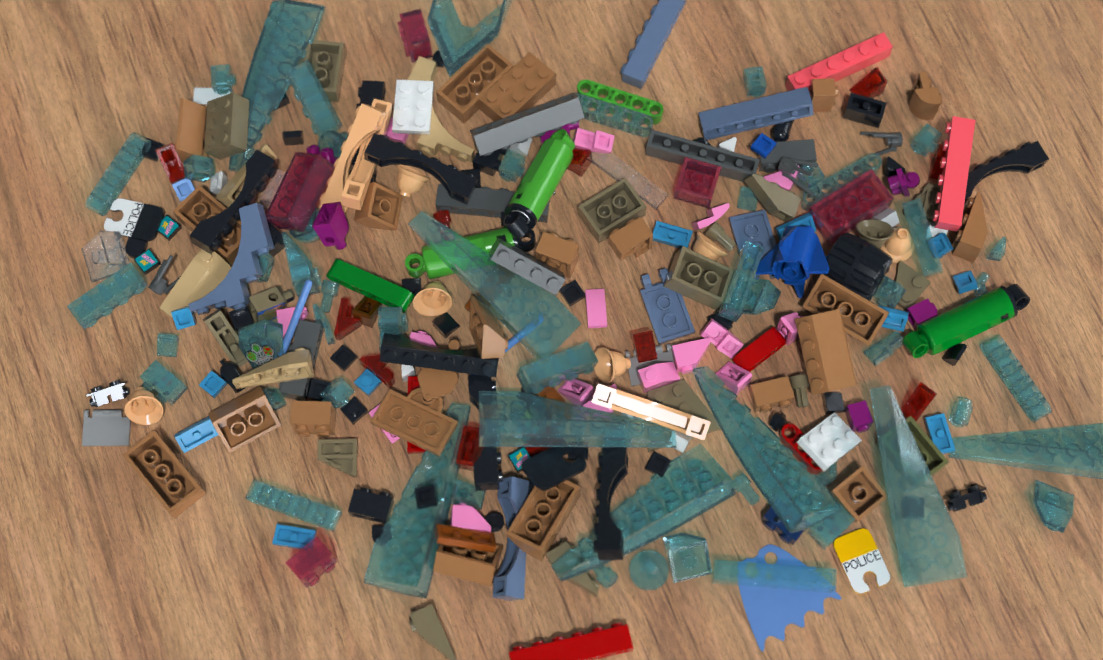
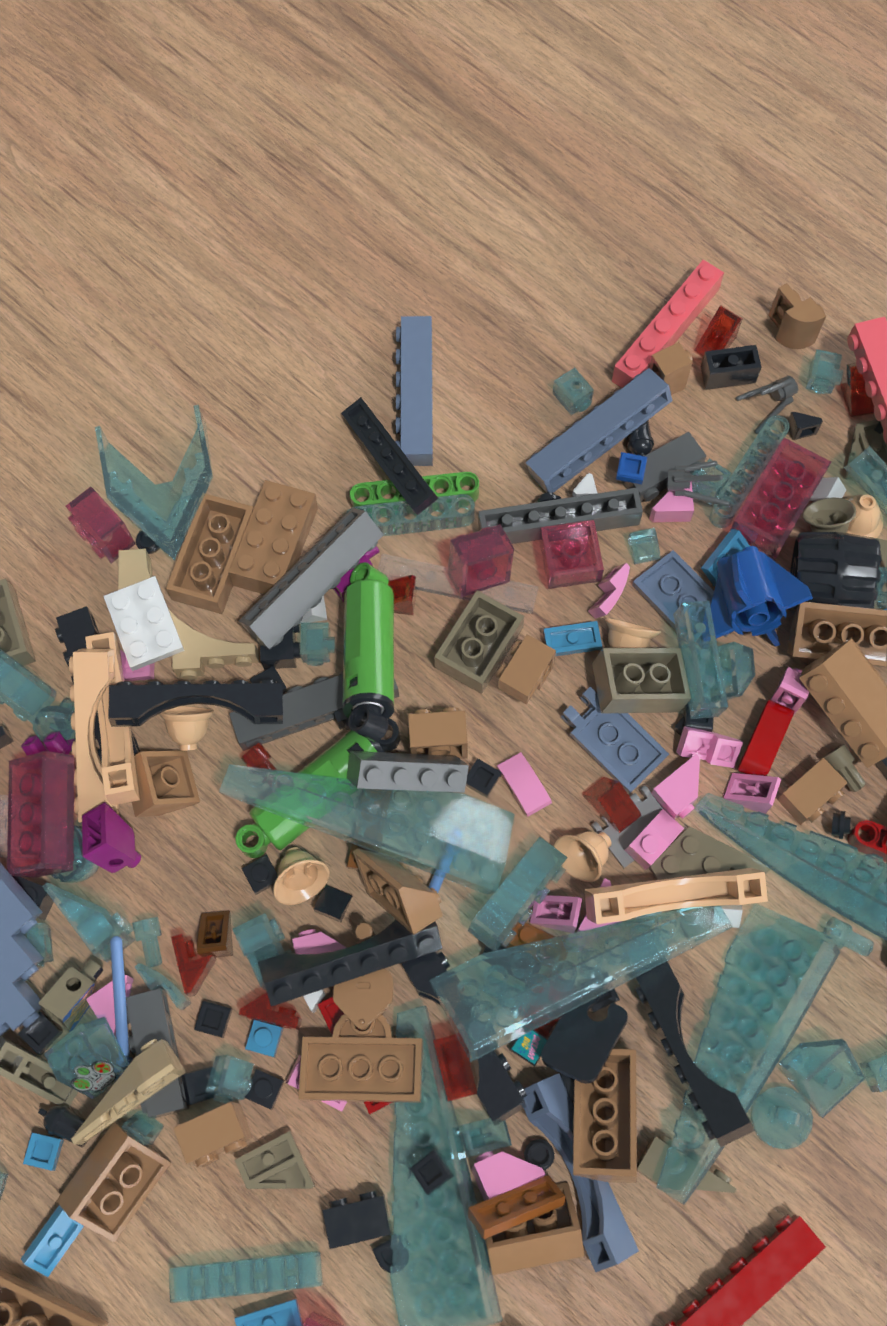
camera: 25 degrees left, 0 degrees up
(369, 285) = (202, 899): green beam -> none
(595, 142) = (408, 561): bright pink slope -> none
(605, 576) = (732, 1158): clear light blue piece -> none
(614, 70) = (389, 456): none -> black plate
(636, 160) = (480, 560): none -> clear pink brick
(658, 464) = (713, 962): black tile -> none
(716, 233) = (629, 609): dark tan piece -> none
(776, 200) = (680, 530): dark tan slope -> none
(900, 182) = (828, 436): magenta hips -> none

